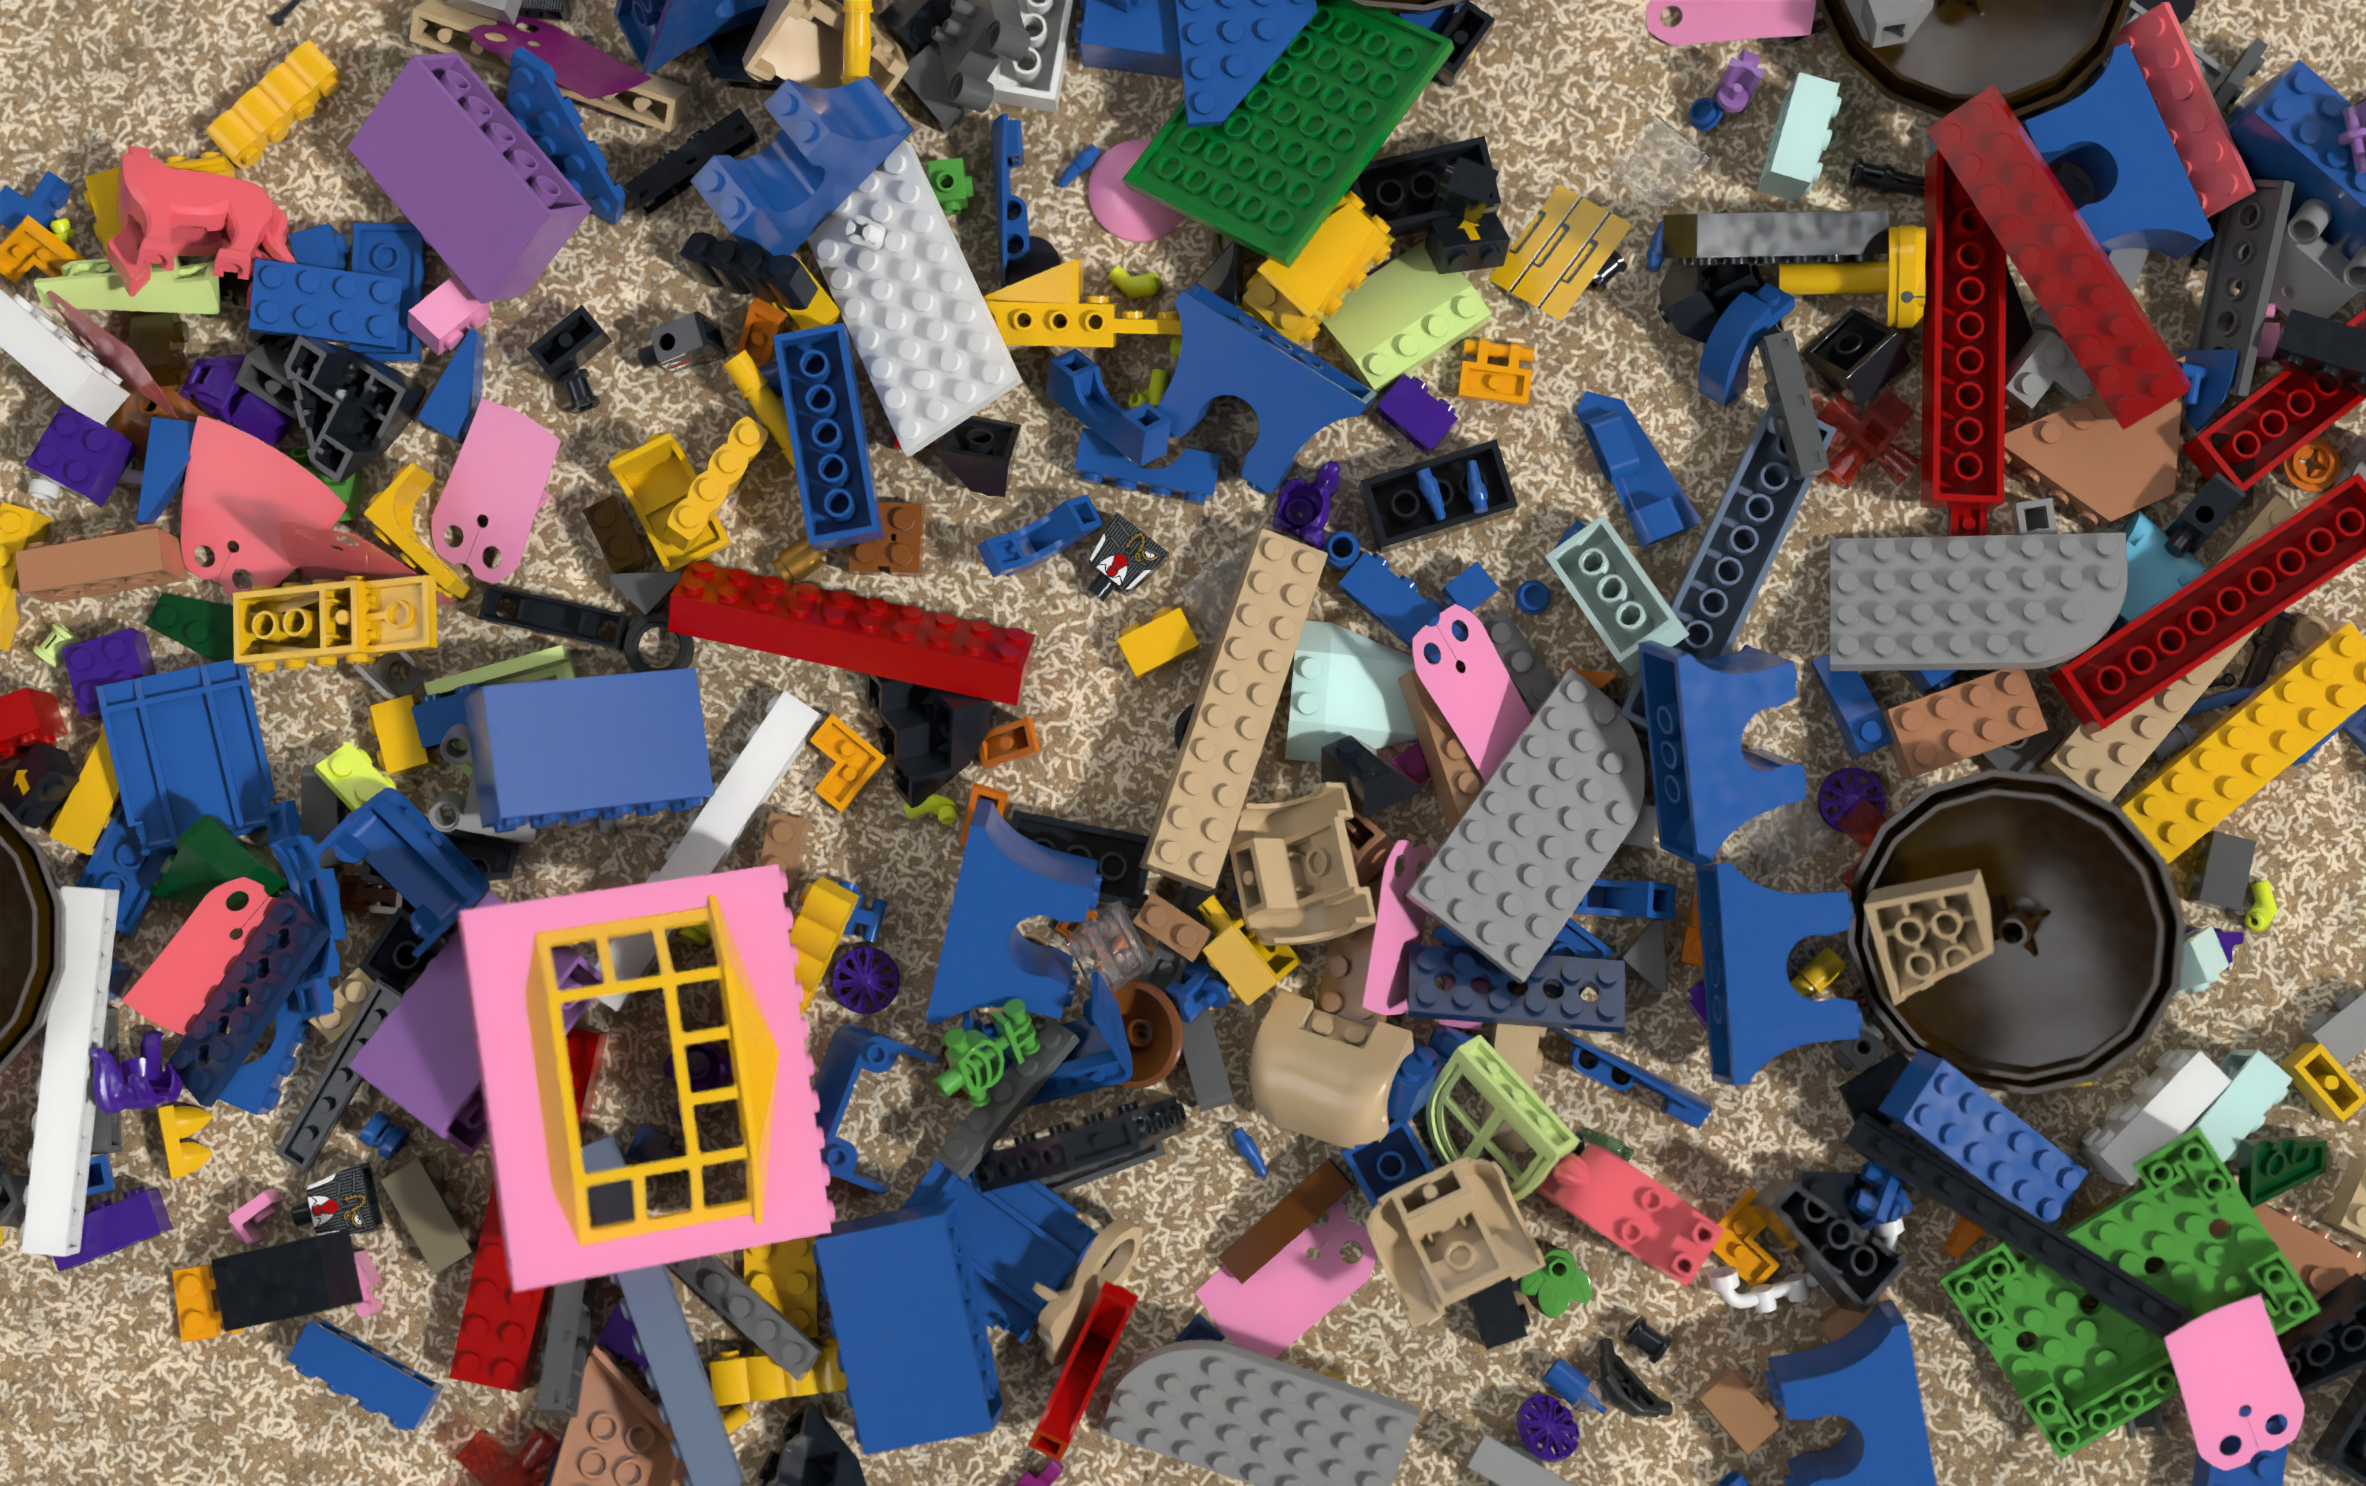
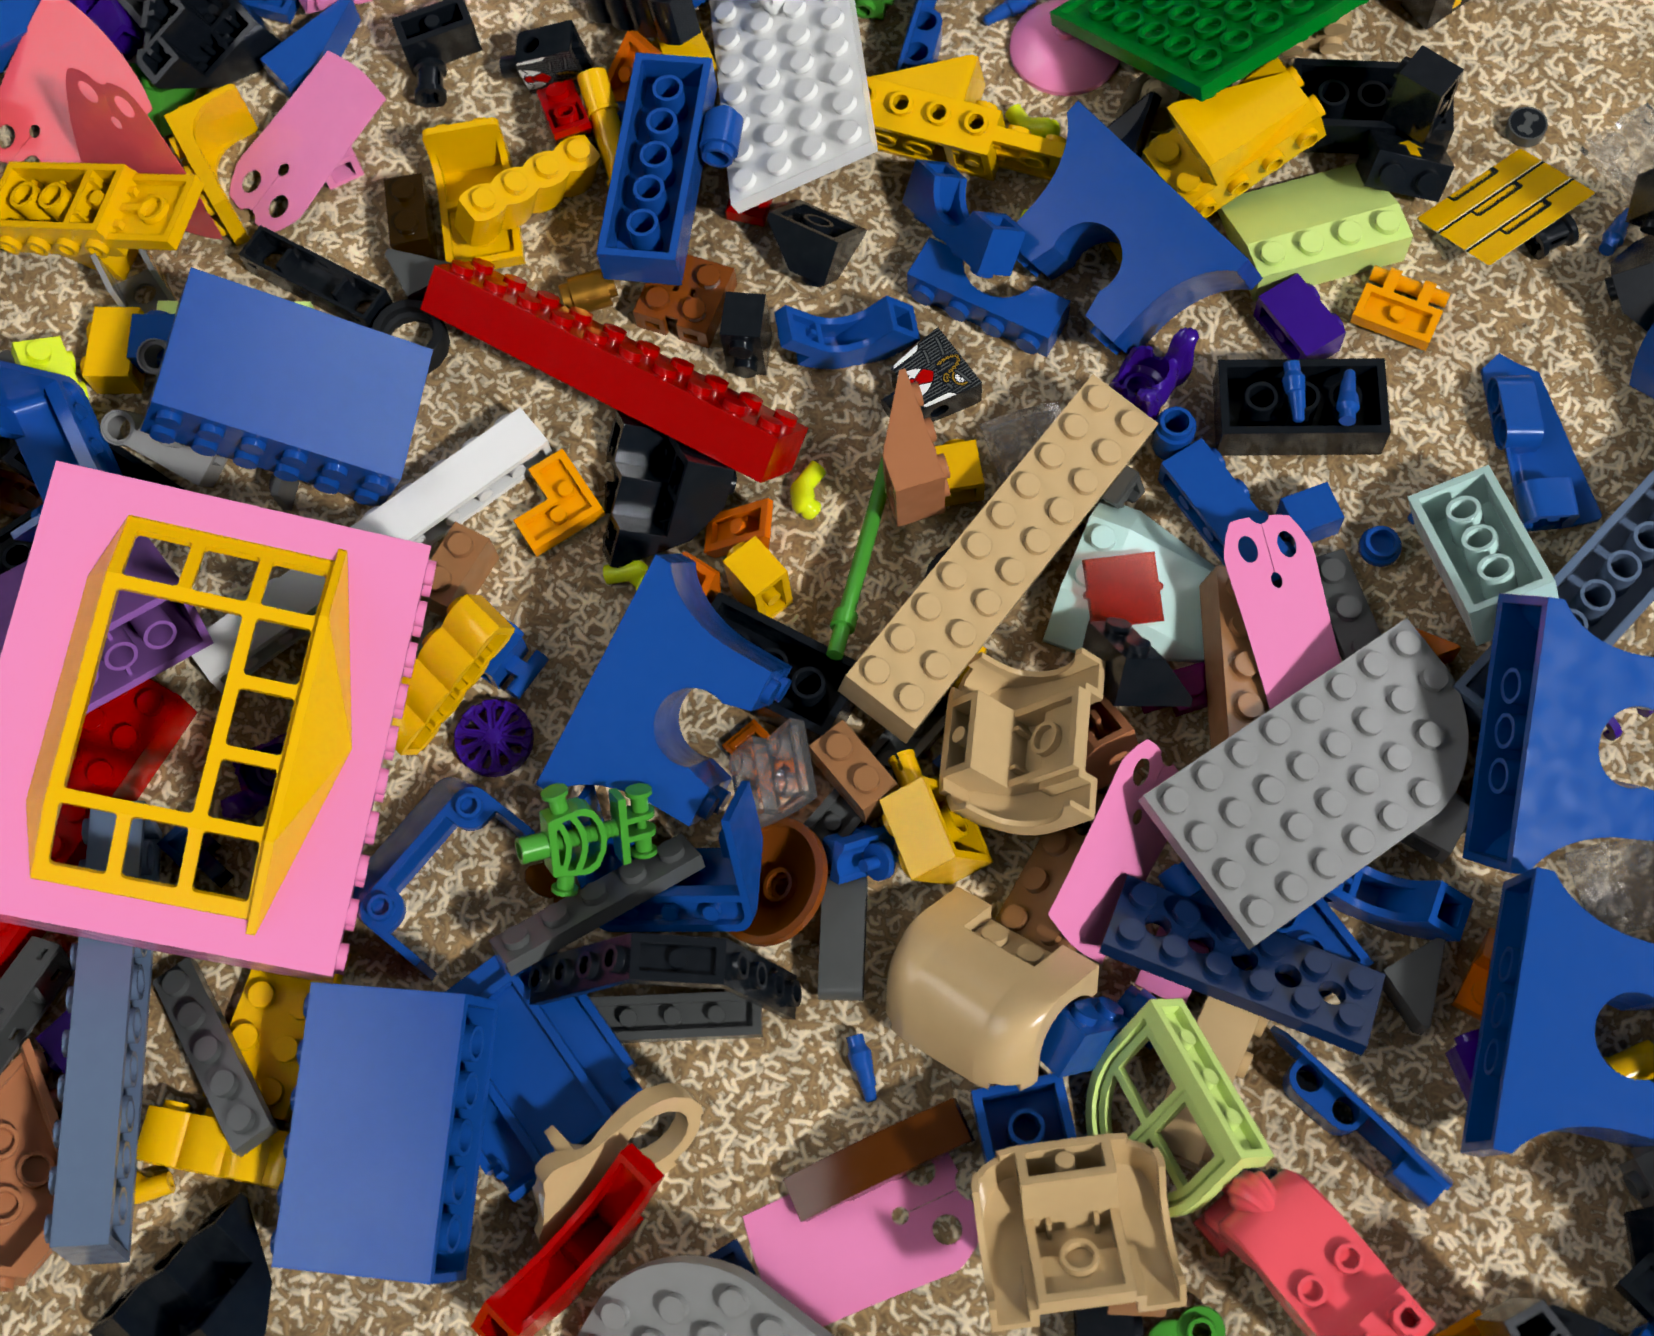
camera: 25 degrees right, 15 degrees down
(719, 396) = (564, 111): none -> red slope
(875, 394) = (721, 136): none -> blue brick
(955, 567) = (746, 334): none -> black brick
(1039, 786) = (757, 578): none -> yellow brick
(1047, 689) = (802, 491): none -> neon yellow arm
(1123, 802) = (845, 616): none -> bright green bar
(1139, 661) = (912, 469): none -> nougat slope
(1318, 608) = (1125, 488): none -> dark grey tile
(1340, 708) = (1123, 588): none -> clear red piece
(1559, 164) = (1526, 126): none -> tile

